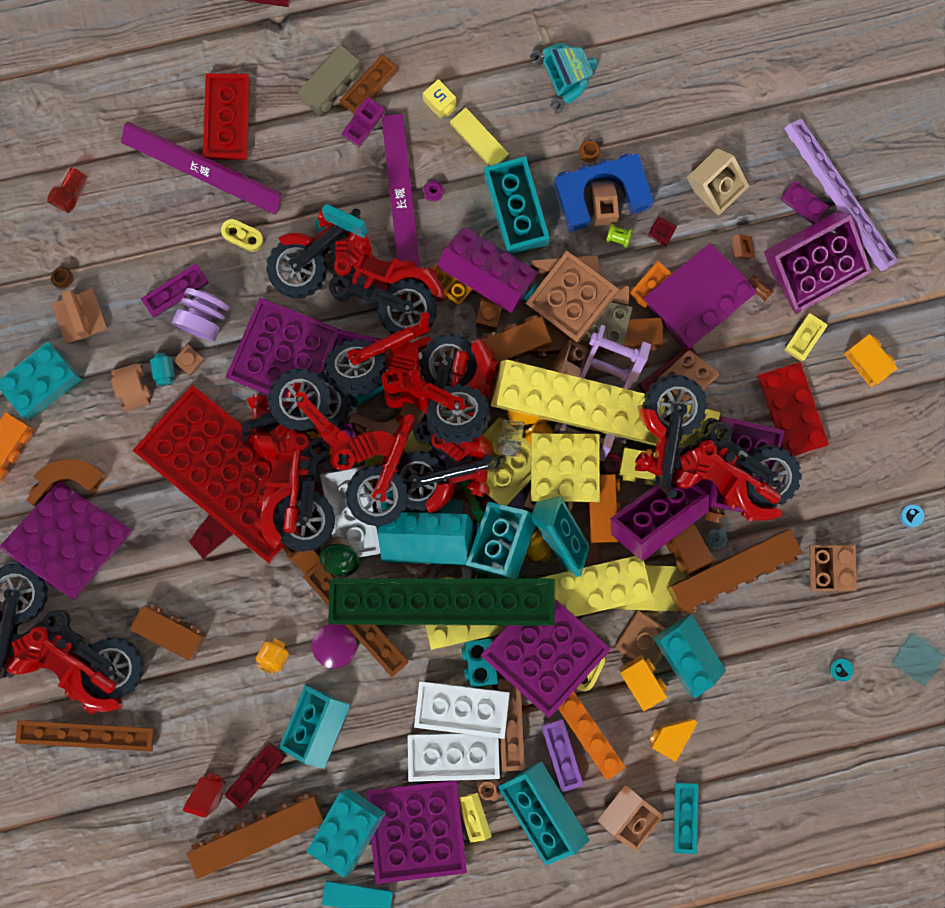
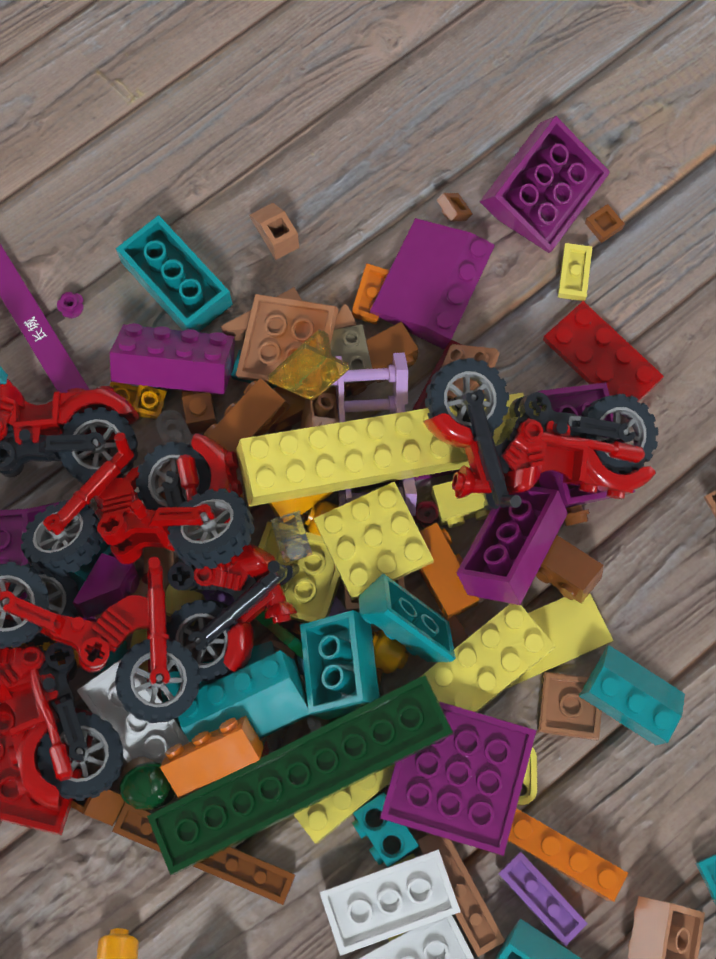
camera: 25 degrees left, 10 degrees down
(334, 646) = (191, 901): magenta dish -> none
(370, 413) = (105, 586): none -> magenta slope
(389, 561) = (211, 756): none -> orange brick
(440, 99) = (32, 202): light yellow brick -> none
(479, 138) = (95, 223): light yellow tile -> none
(567, 69) = (164, 108): teal torso -> none
(578, 327) = (309, 368): none -> clear yellow bracket
(589, 151) = (230, 183): dark orange plate -> none
(618, 235) = (308, 257): lime bush -> none
(625, 172) = (282, 186): blue arch -> none
(643, 682) = (596, 756): light orange brick -> none
(662, 231) = (355, 232): dark red tile -> none
(672, 737) = (665, 808): light orange slope -> none
(718, 181) = (391, 150): tan slope -> none
(723, 540) = (600, 539): clear light blue plate -> none
(734, 570) = (632, 569): dark orange brick -> none
(762, 290) = (502, 244): dark orange pin -> none
(804, 202) = (497, 133): magenta plate -> none
(840, 193) = (532, 105): lavender plate -> none
(846, 310) = (604, 223): none -> dark orange plate
(871, 360) = (660, 263): light orange brick -> none

